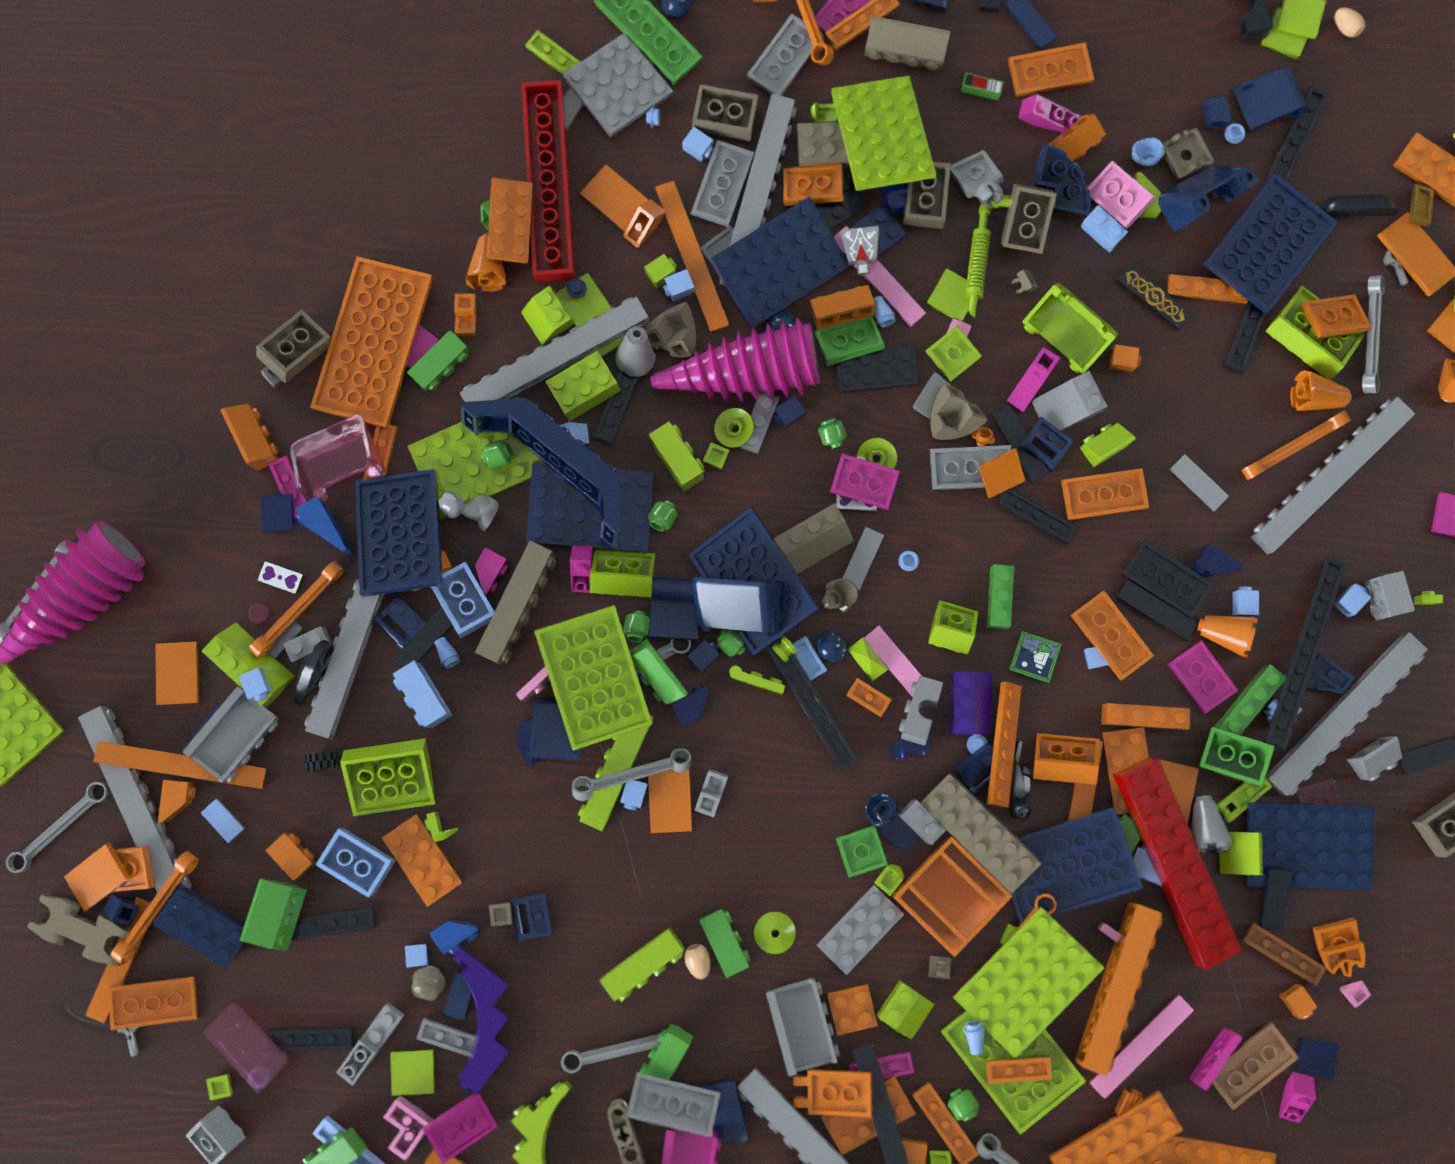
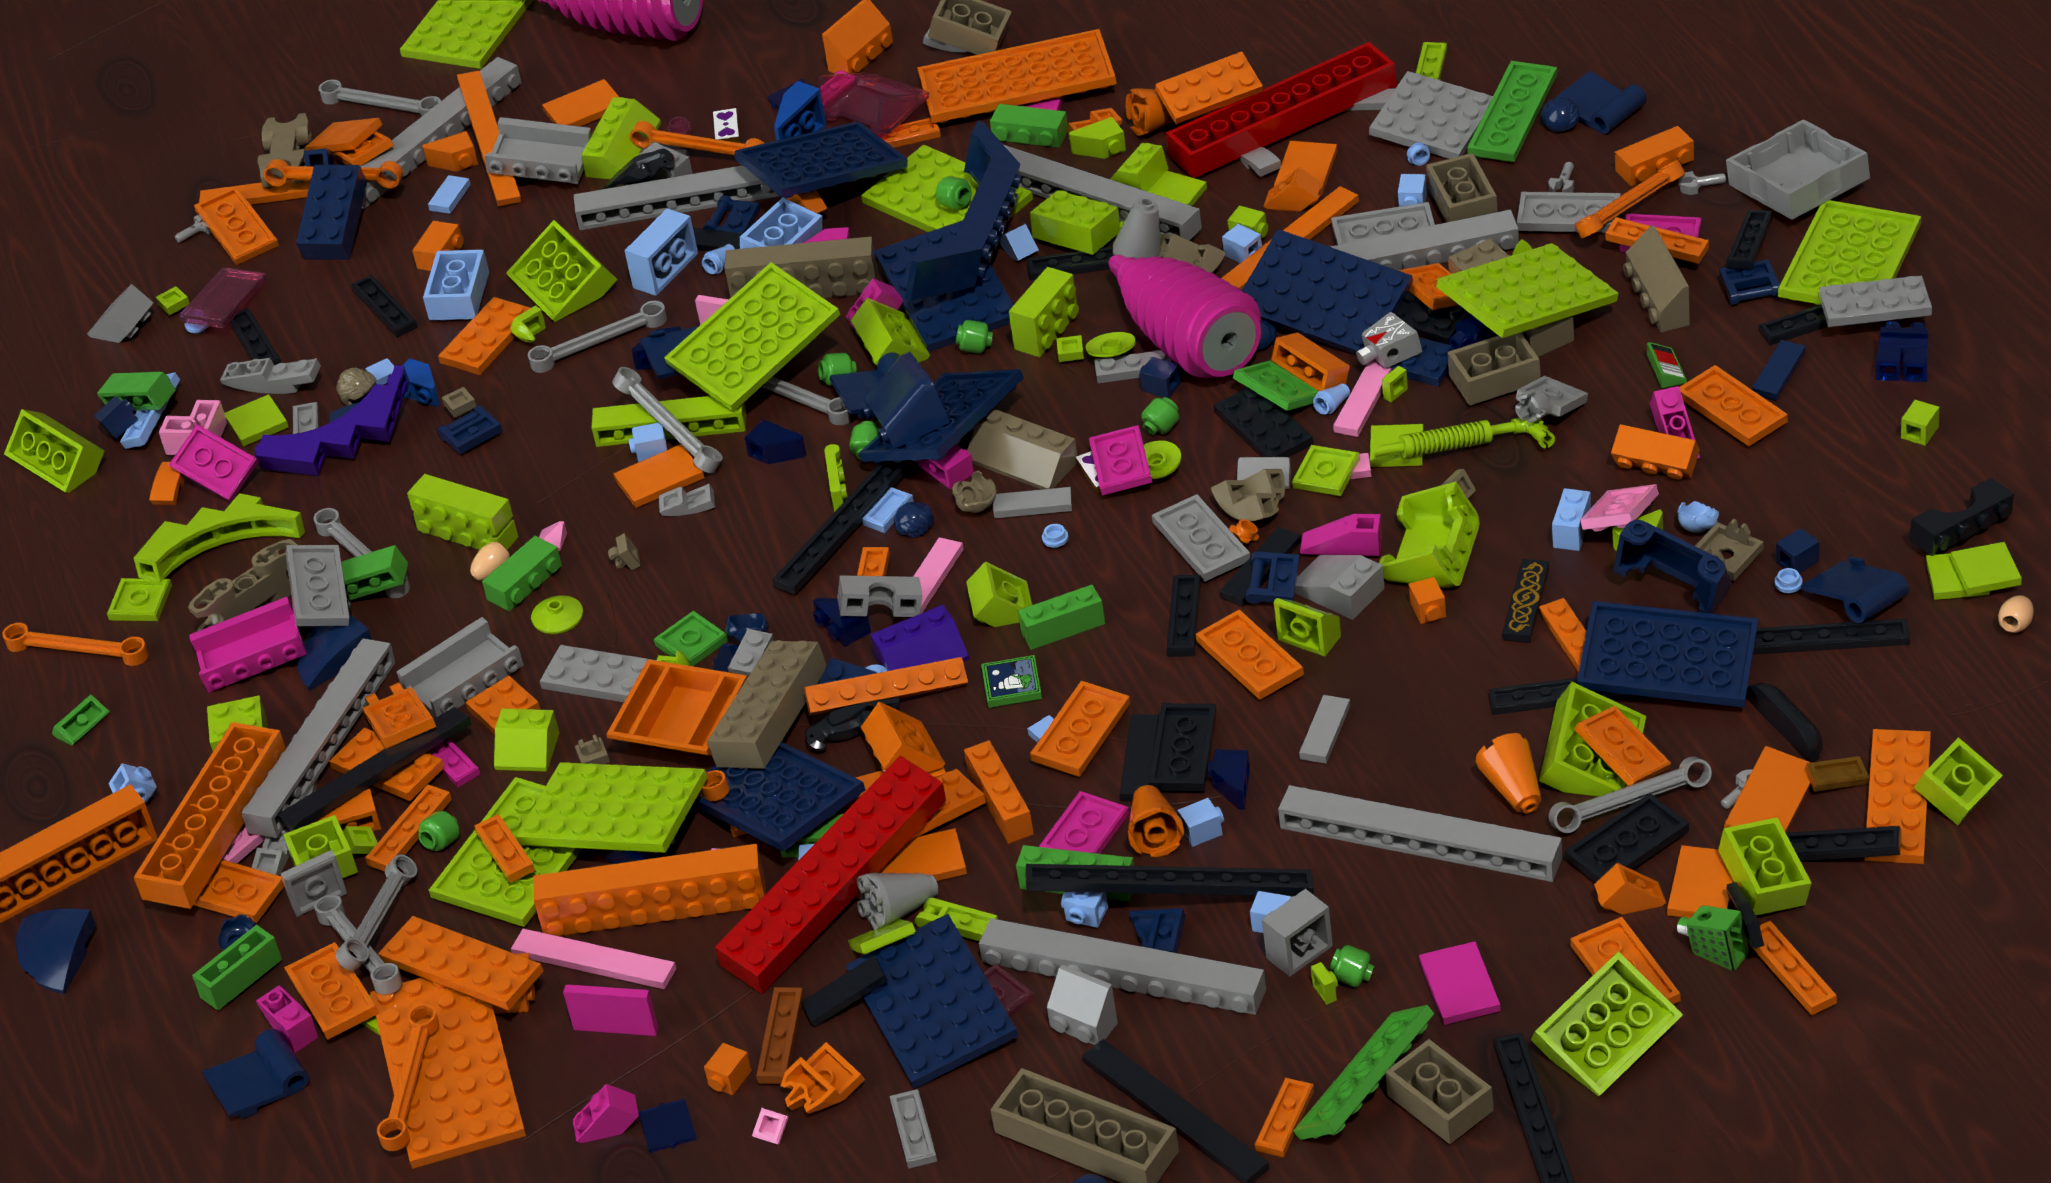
camera: 70 degrees right, 40 degrees down
(256, 684) = (598, 132): light blue brick -> none
(273, 914) = (369, 250): bright green slope -> none
(322, 761) = (545, 212): black tyre -> none
(479, 509) = (887, 213): light grey animal -> none
(479, 779) = (597, 336): none -> light grey piece
(490, 320) = (1098, 139): none -> lime slope
(576, 288) = (1180, 177): dark blue plate -> none
(588, 224) = (1261, 161): none -> light grey slope
(657, 673) = (795, 390): bright green slope -> none
(691, 905) = (555, 534): none -> bright pink slope
(704, 655) = (835, 428): dark blue brick -> none
(744, 40) = (1563, 180): none -> light grey bar
(747, 860) = (626, 552): none -> dark tan tile
(784, 649) = (881, 472): lime wheel -> none
(867, 659) = (916, 549): lime slope -> none
(895, 265) = (1394, 384): none -> lime plate
(975, 1036) = (523, 796): light blue cone -> none
(1002, 473) = (1204, 544): orange piece -> none
(1028, 218) = (1526, 444): dark tan brick -> none
(1064, 177) = (1592, 452): dark blue brick -> none
(1237, 756) = (994, 874): bright green slope -> none
(1253, 1065) = (623, 1061): medium nougat plate -> none
(1296, 445) = (1491, 809): orange piece -> none
(1405, 905) = (913, 1128): none -> light grey tile
(1407, 357) = (1627, 838): none -> black plate
(1424, 576) = (1351, 966): none -> bright green head

